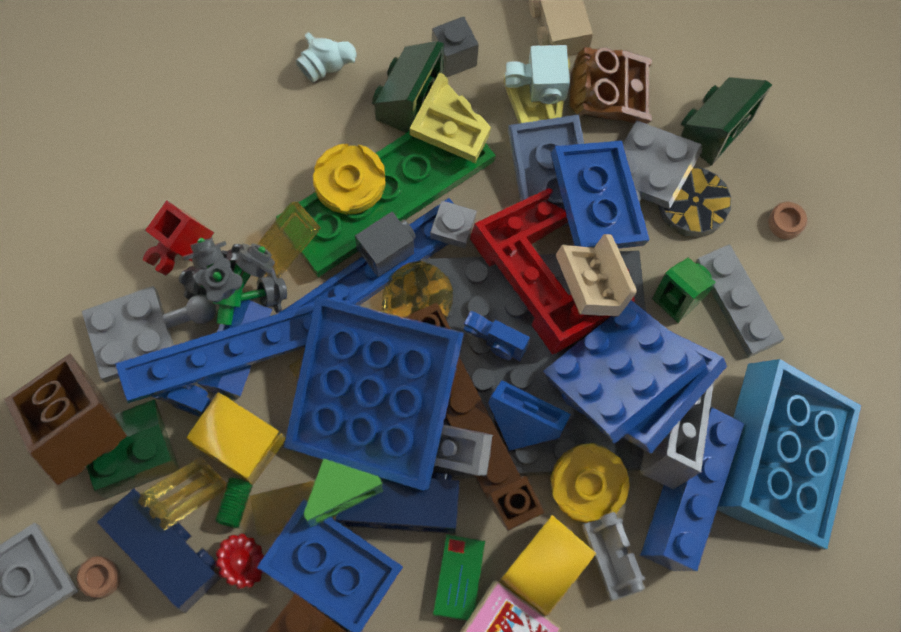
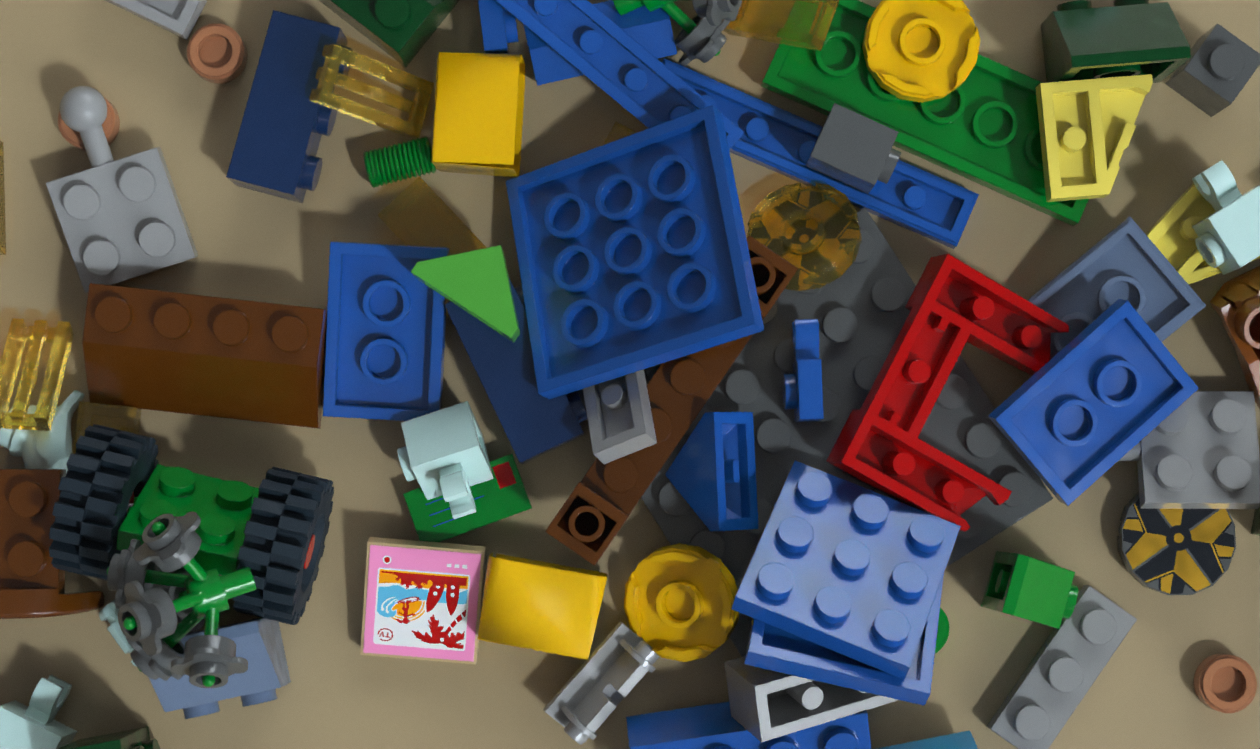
camera: 60 degrees right, 15 degrees up
(239, 561) = (331, 213): red piece -> none
(426, 571) = (446, 456): none -> light aqua brick
(453, 224) = (939, 223): light grey plate -> none
(597, 277) = (959, 463): tan bracket -> none

